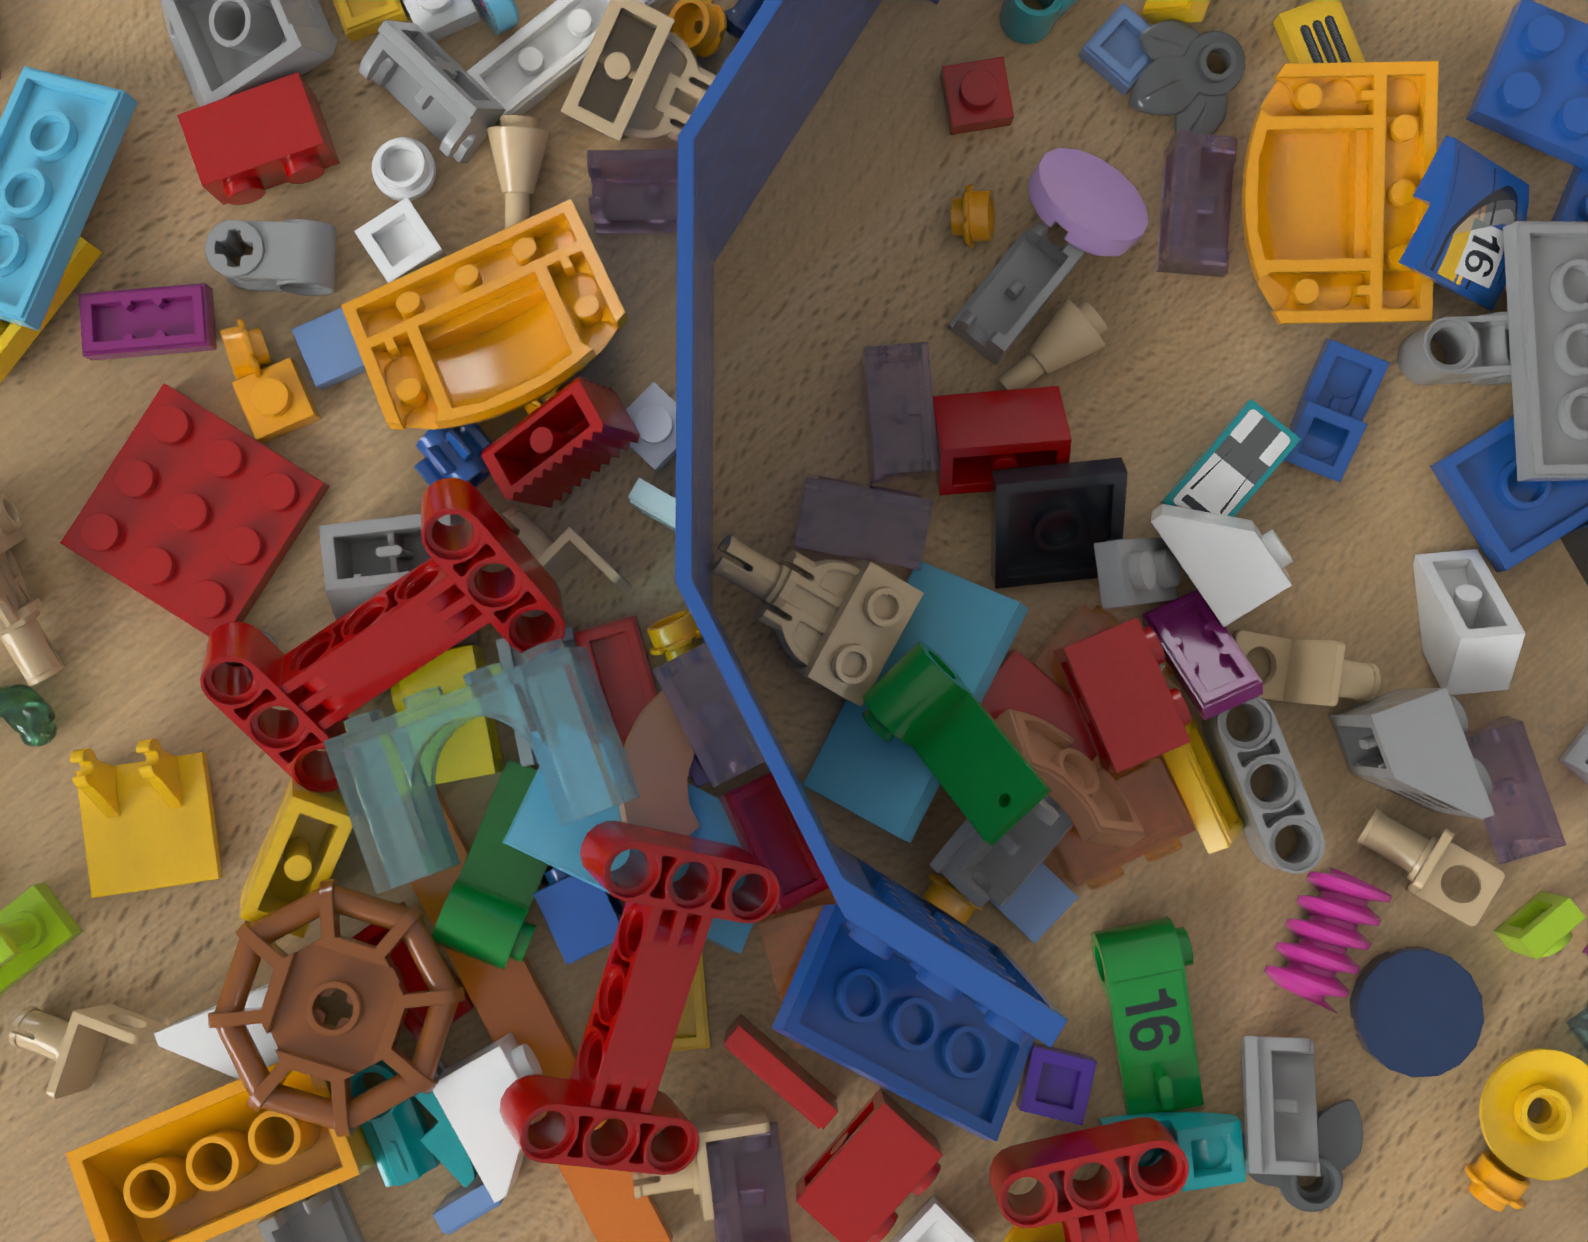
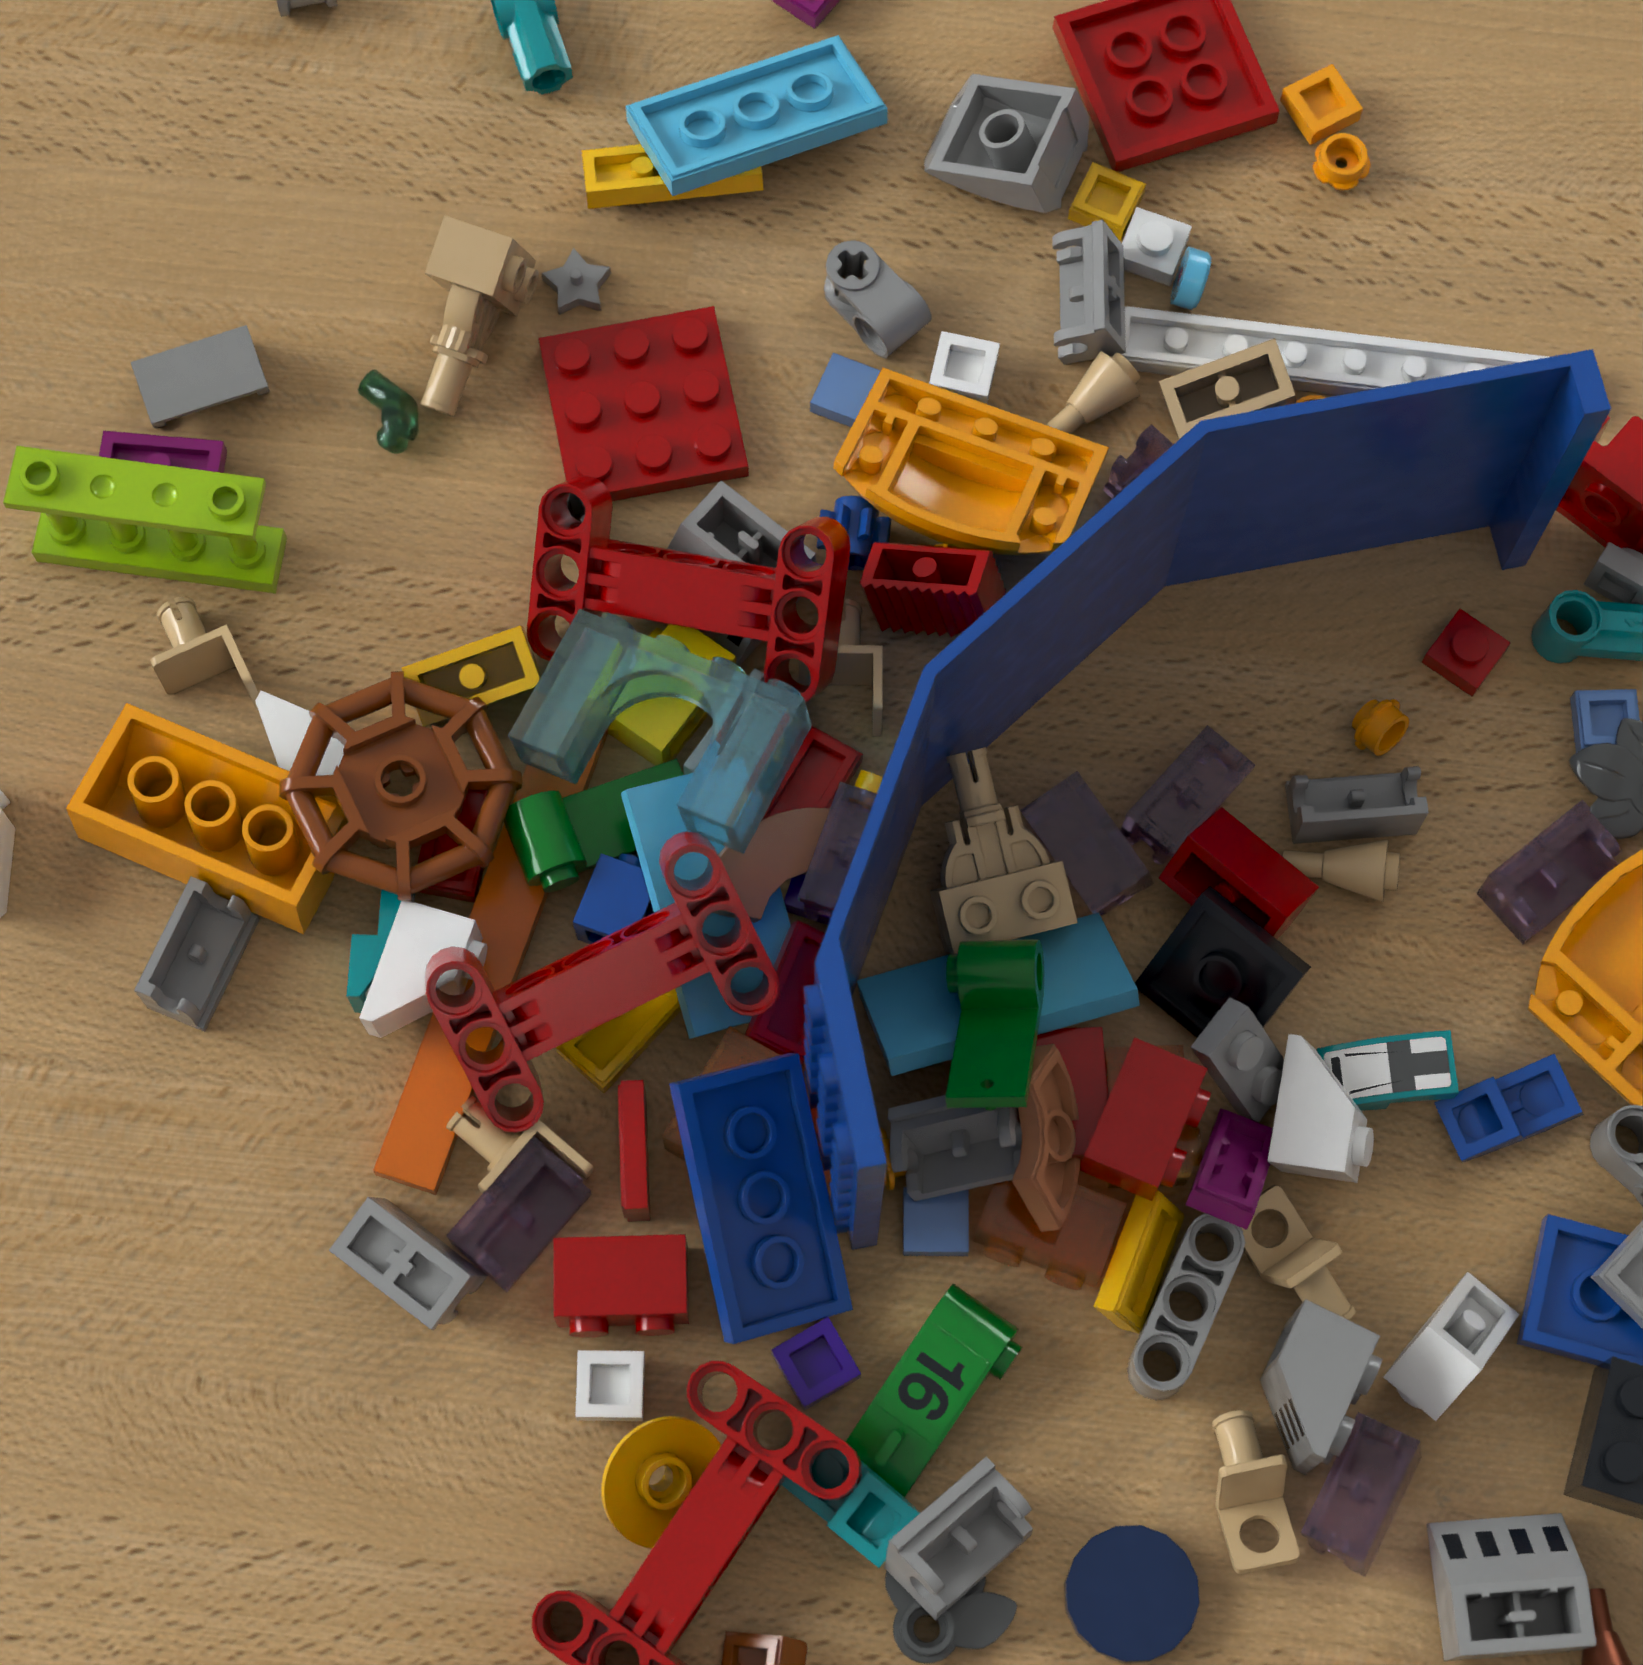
camera: 50 degrees right, 15 degrees down
(42, 467) = (577, 283): none -> light grey piece
(147, 321) = (745, 259): magenta plate -> none
(147, 820) = (399, 562): yellow plate -> none
(245, 349) = (788, 336): light orange plate -> none
(259, 140) = (941, 219): red brick -> none
(276, 400) = (773, 388): light orange plate -> none
(396, 1135) = (335, 917): teal piece -> none
(403, 169) = (1017, 326): white plate -> none
(464, 1206) = (334, 1018): medium blue tile -> none
(1088, 201) = (1469, 788): lavender tile -> none
(1326, 936) = (1119, 1457): dark pink piece -> none
(1540, 925) = (1287, 1622): lime plate -> none

